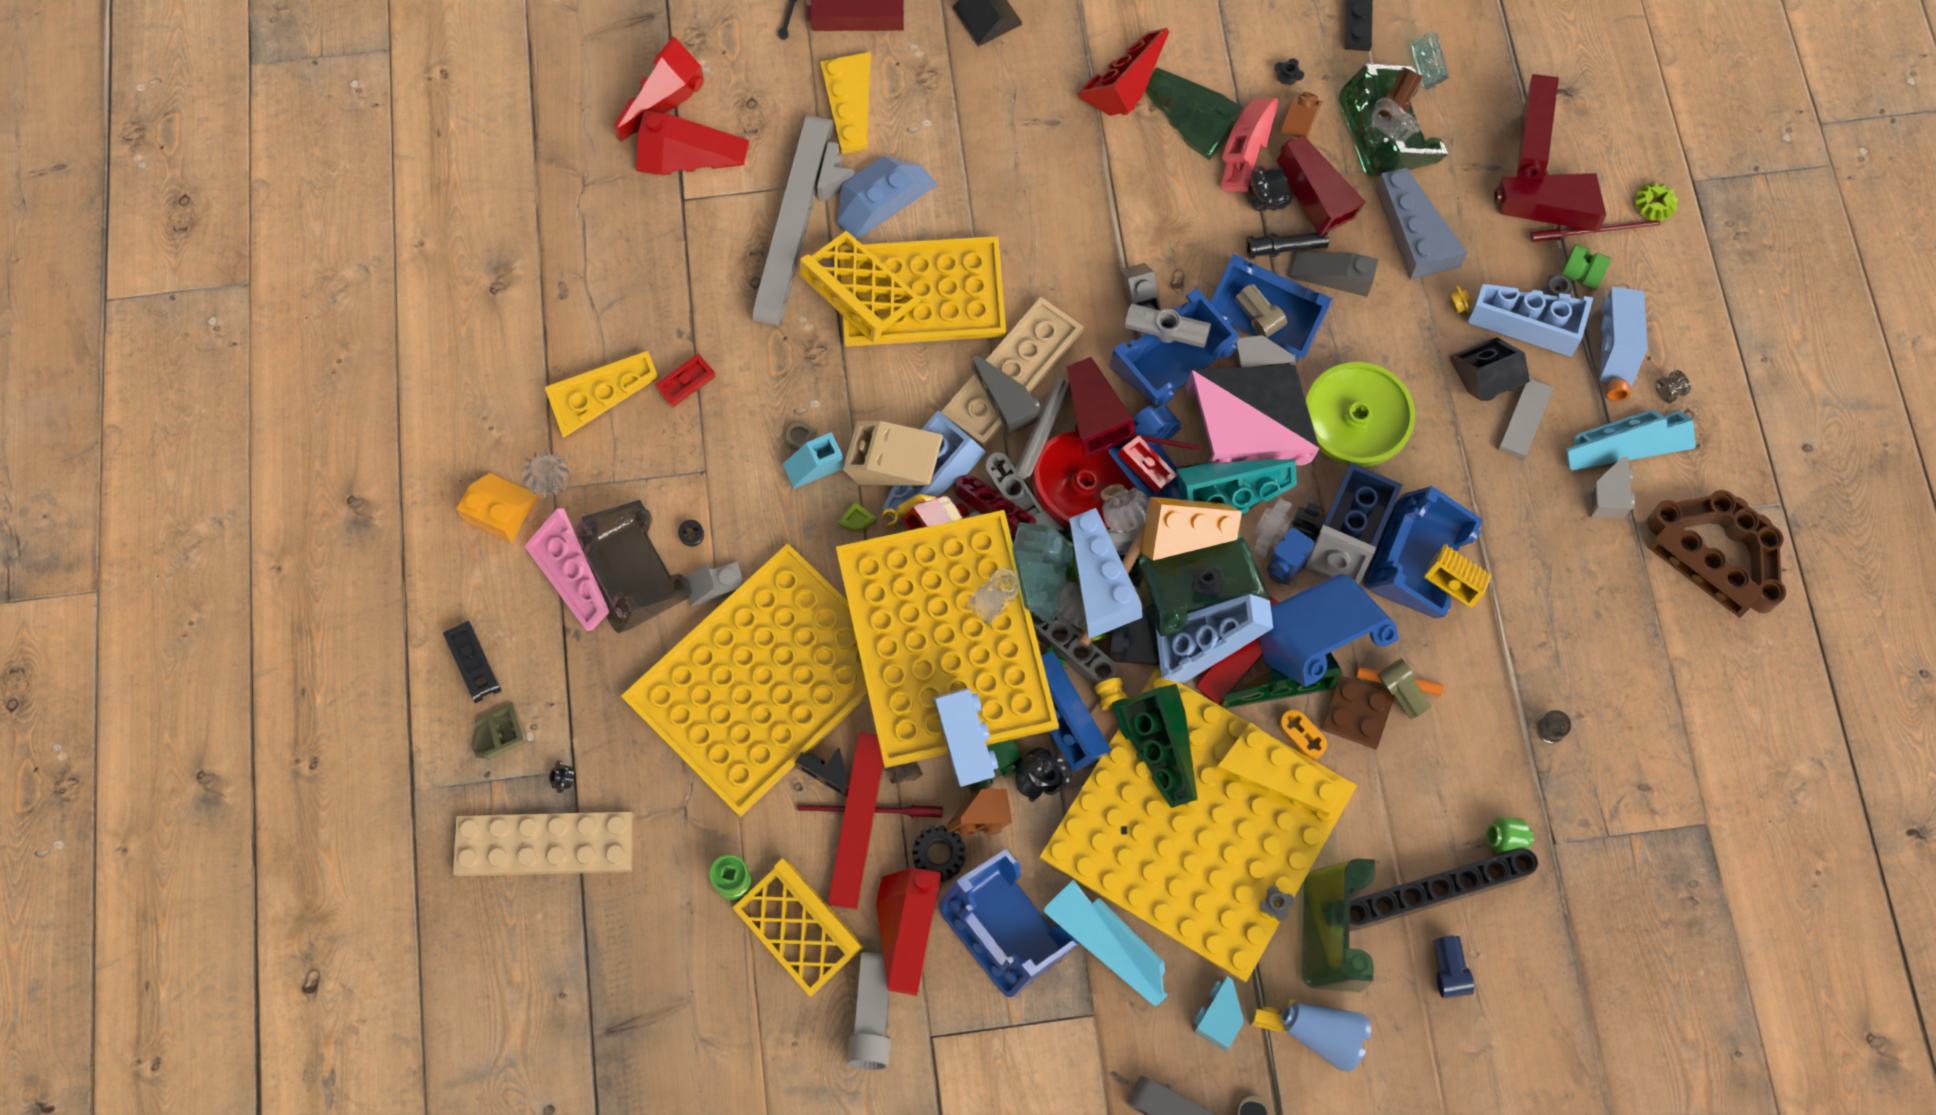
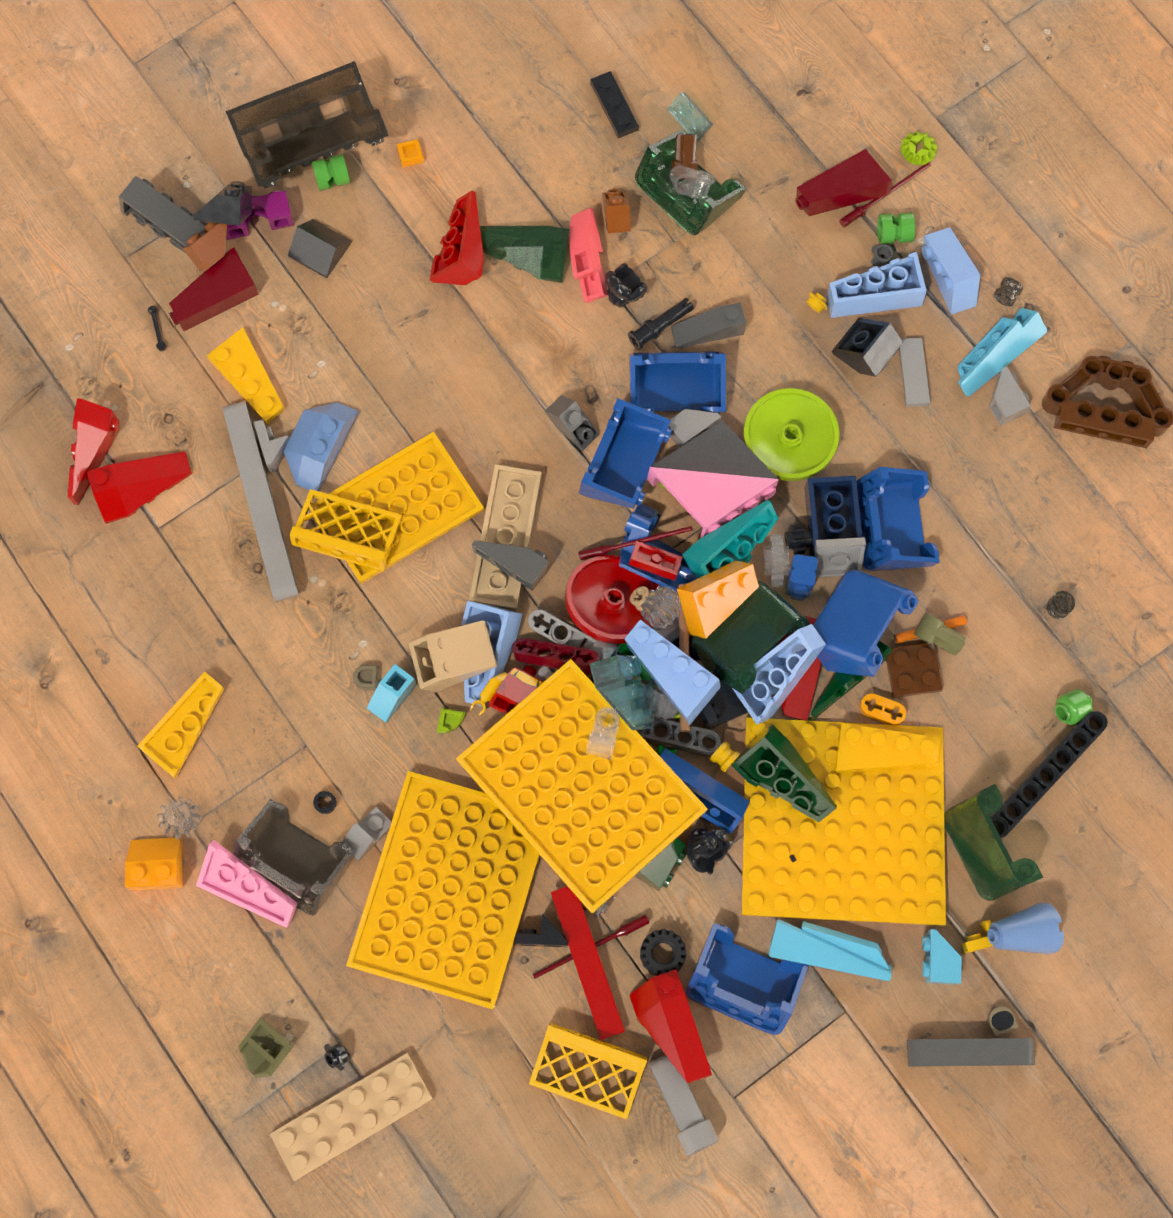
camera: 30 degrees left, 5 degrees up
(471, 661) = (208, 1002): black plate -> none
(685, 380) = (248, 680): red plate -> none
(730, 877) = (516, 1062): bright green wheel -> none
(965, 736) = (644, 857): light blue wedge -> none
(982, 811) = (679, 902): dark orange slope -> none
(1042, 428) = (557, 573): light grey axle -> none
(1098, 409) = (593, 536): dark red slope -> none
(1183, 329) = (625, 436): light grey piece -> none
(1207, 588) = (756, 640): black plate -> none
(1264, 317) = (677, 392): dark tan piece -> none
(1268, 906) = (932, 859): dark grey plate -> none
(1286, 77) = (586, 185): black plate -> none
(1318, 186) = (660, 263): dark red slope -> none
(1417, 227) = (752, 258): sand blue wedge -> none
(1453, 976) = (1089, 836): dark blue piece -> none
(1457, 576) = (931, 525): yellow brick -> none
(1537, 127) = (803, 134): dark red slope -> none
(1618, 389) = (969, 314): orange hinge -> none

